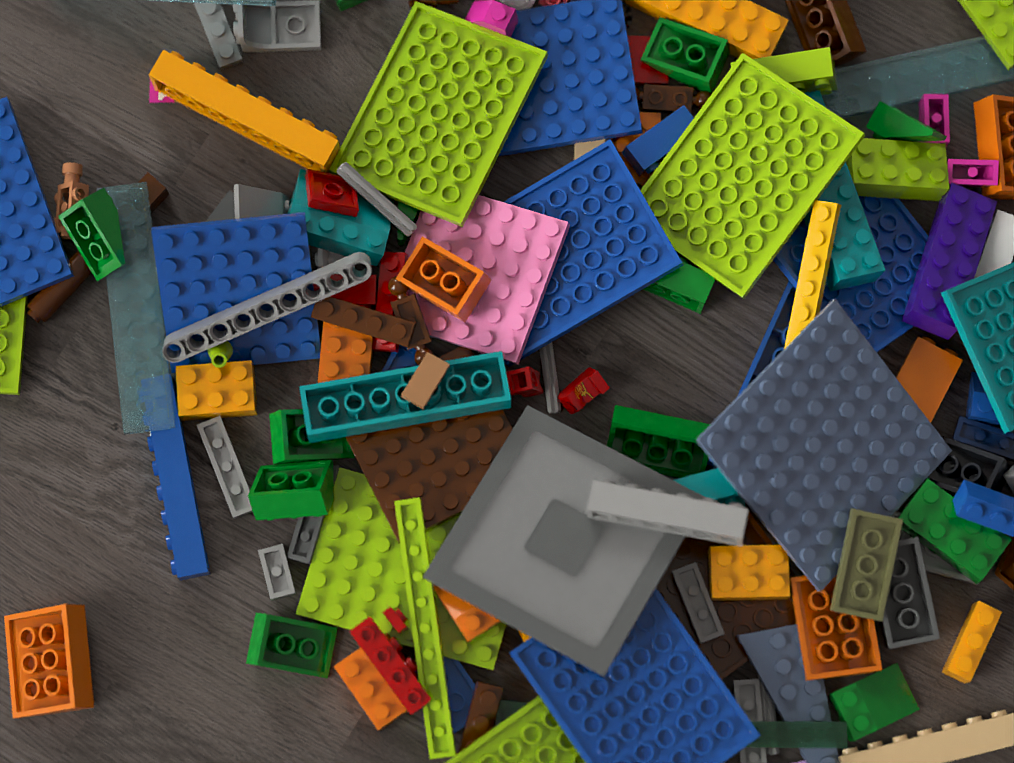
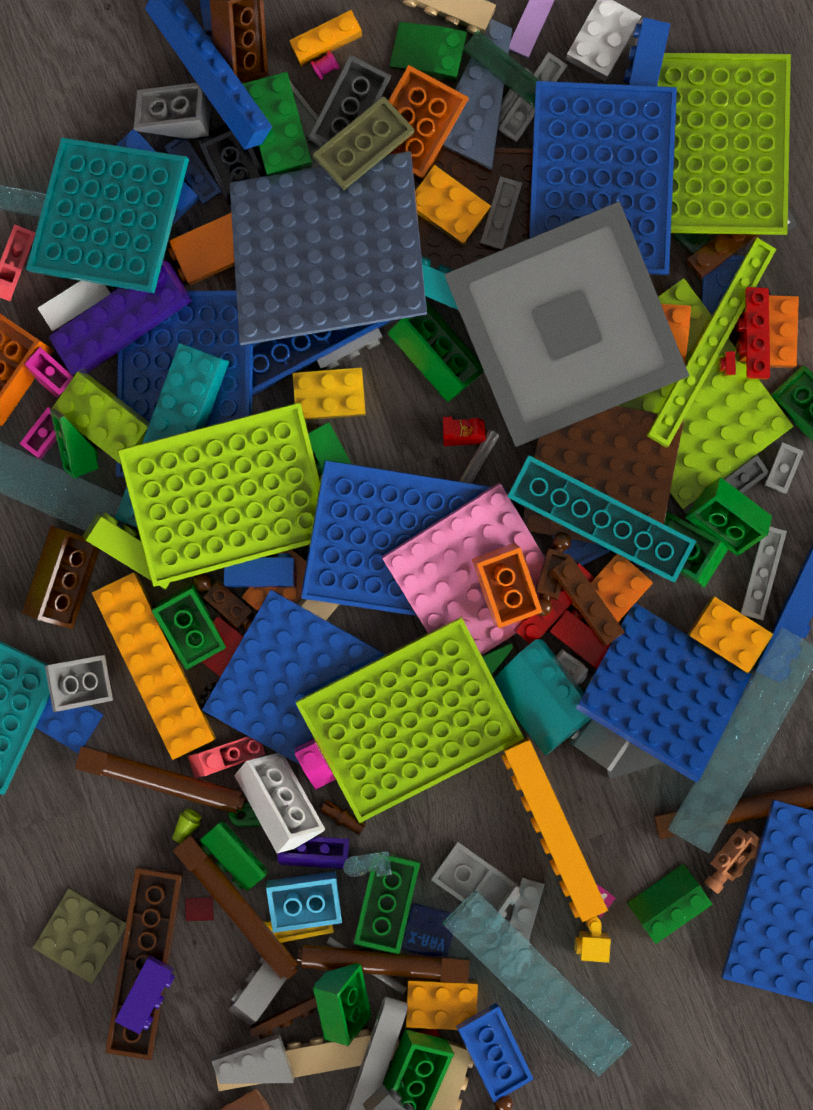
camera: 140 degrees left, 10 degrees up
(96, 232) = (735, 815): green slope -> none
(99, 128) = (669, 903): none -> green slope
(139, 44) = (593, 944): none -> yellow brick
(220, 354) = (709, 657): lime cone -> none
(258, 316) = (689, 672): light grey beam -> none
(330, 193) = (538, 716): red tile -> none
(376, 199) = (507, 687): light grey axle -> none
(425, 380) = (580, 515): medium nougat tile -> none
(524, 382) = (503, 467): red leg -> none
(667, 512) = (483, 284): light grey brick -> none
(722, 335) = (330, 393): none -> yellow brick
(734, 385) = (350, 350): none -> light grey plate
(813, 267) = (235, 380): yellow plate -> none
(953, 618) = (324, 65): none -> dark pink bush

